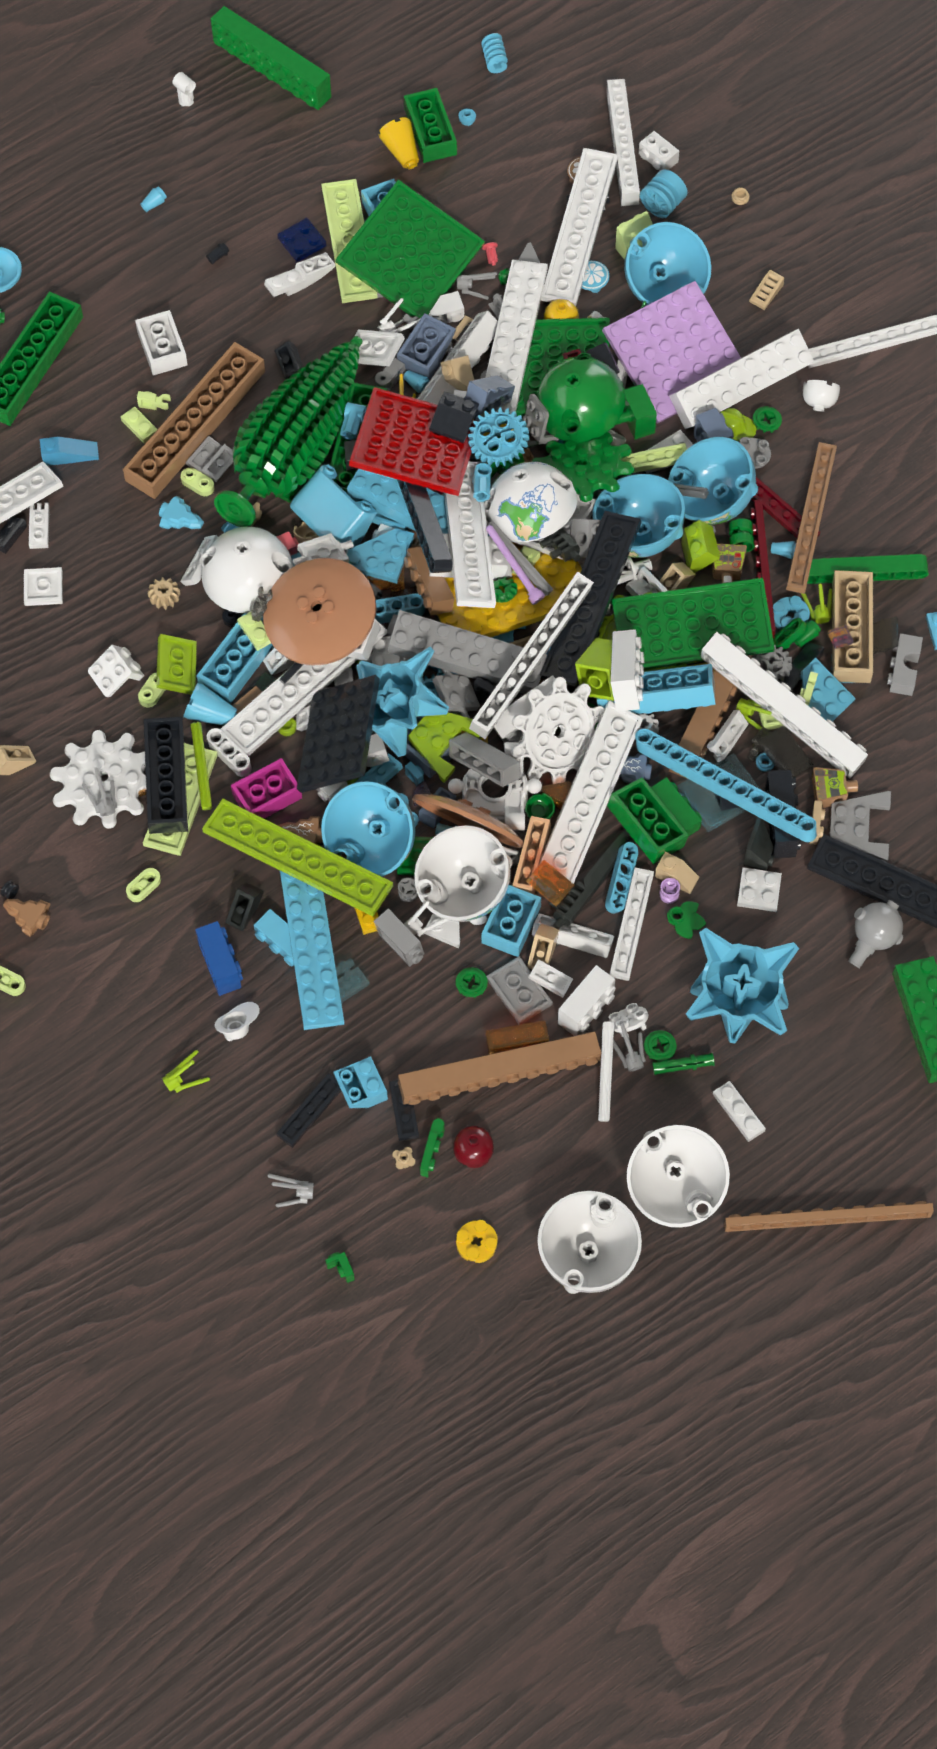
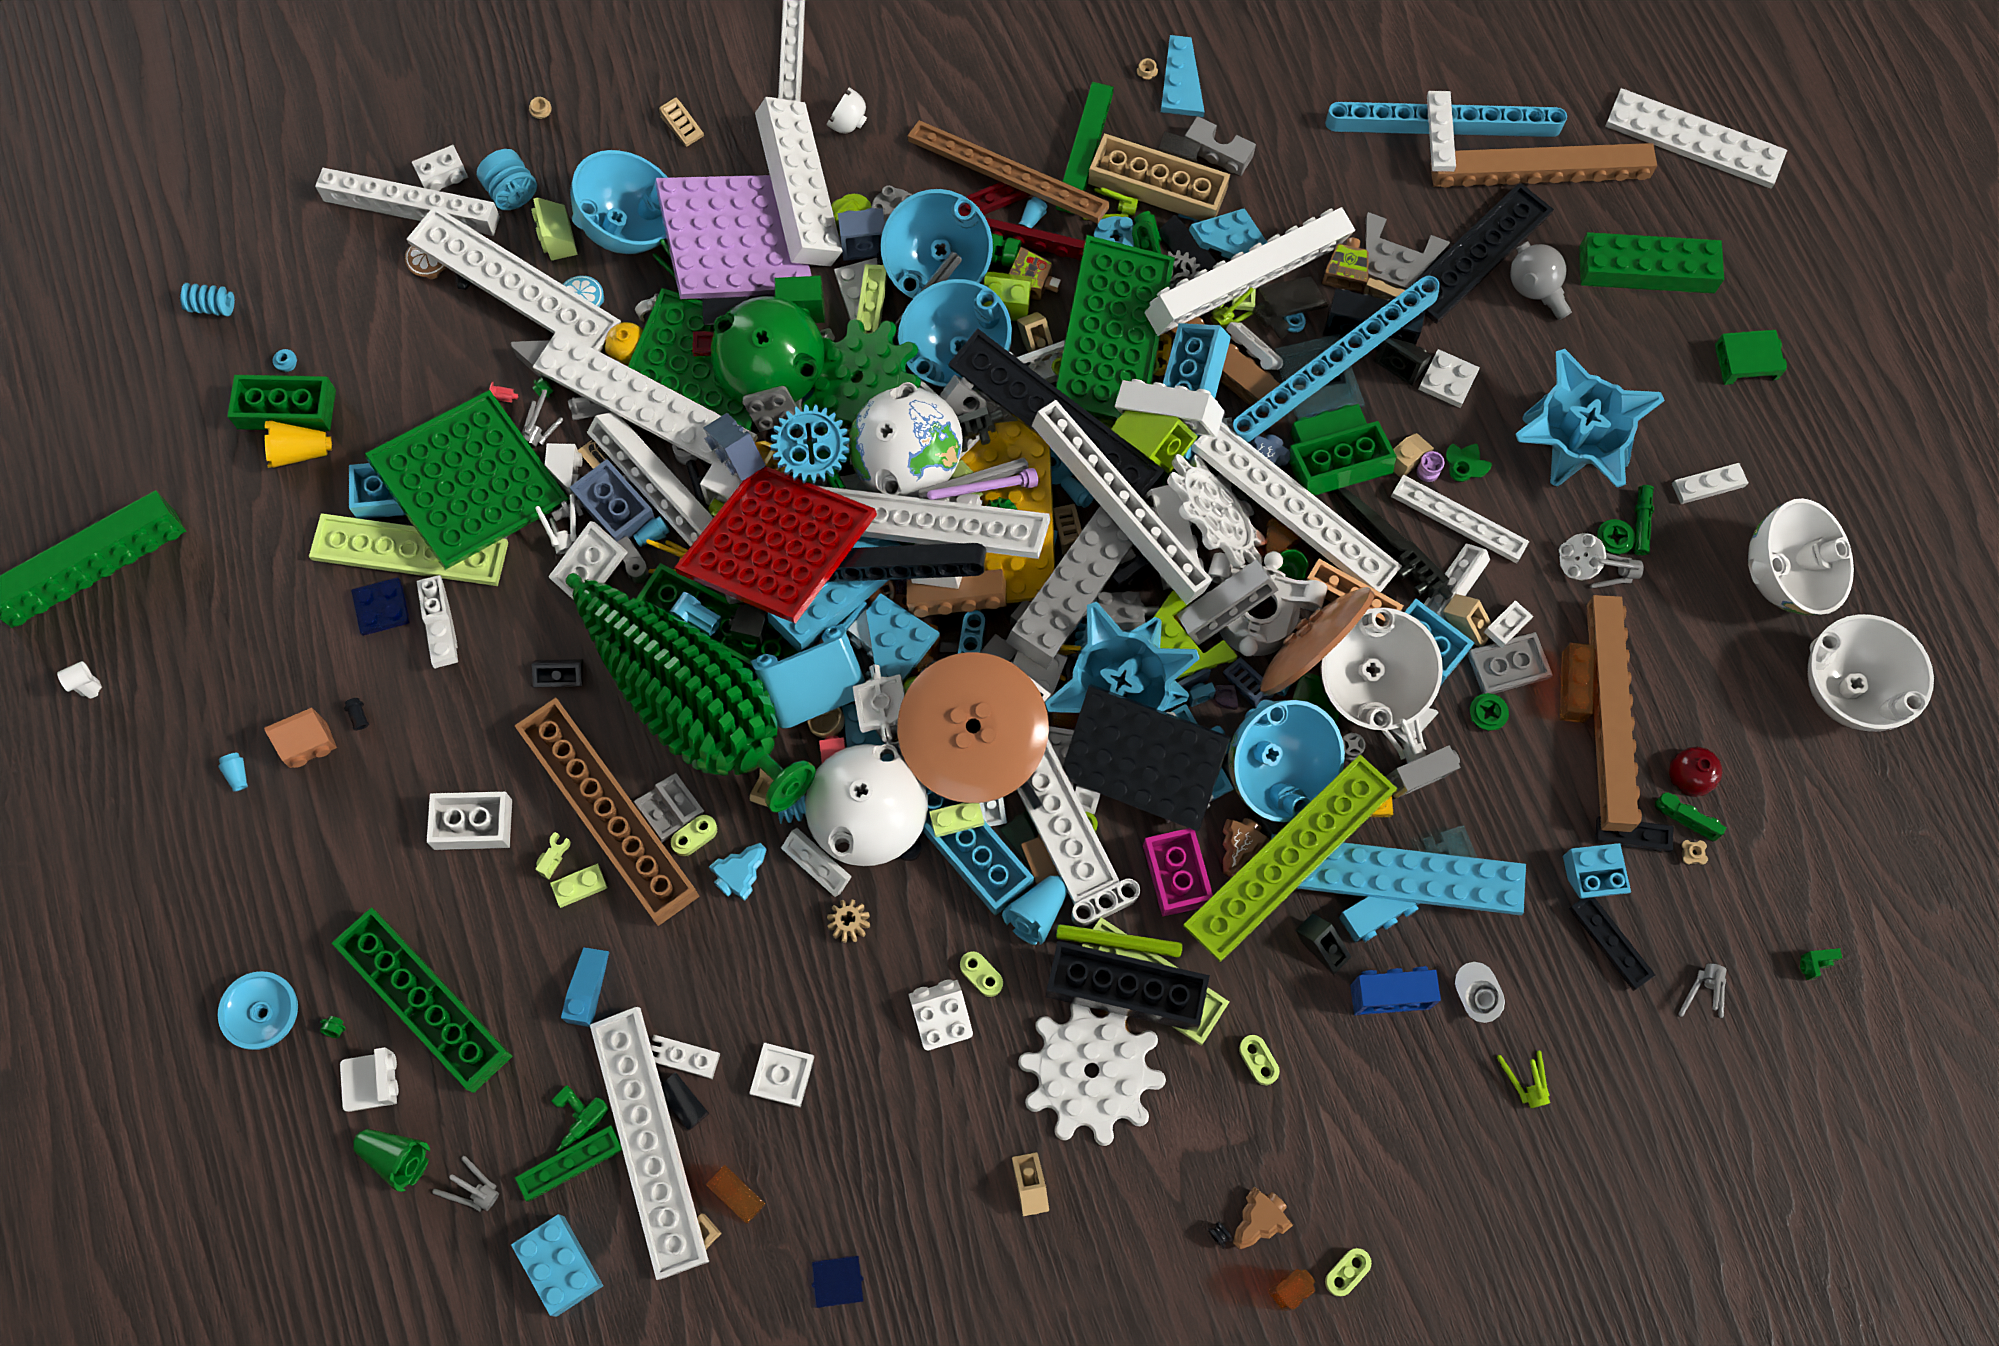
camera: 75 degrees left, 5 degrees up
(105, 806) = (1142, 1074): light grey plant -> none
(176, 664) = (961, 932): lime plate -> none
(187, 226) = (301, 738): none -> nougat slope
(259, 606) = (934, 799): clear smoke plate -> none
(454, 417) = (758, 487): black slope -> none
(458, 372) = (673, 474): tan slope -> none
(473, 1252) = (1820, 792): yellow plate -> none
(481, 482) = (855, 485): medium azure piece -> none
(550, 883) = (1406, 581): clear orange brick -> none
(587, 1002) = (1554, 592): white brick -> none
(606, 1071) = (1640, 600): white axle -> none
(619, 876) = (1420, 522): medium azure beam -> none
(769, 413) = (846, 175): green gear -> none
(807, 693) = (1234, 242): yellowish green plate -> none
(837, 1215) = (1856, 426): medium nougat plate -> none
(840, 637) = (1178, 189): tile -> none
(871, 1118) = (1750, 355): none -> green panel

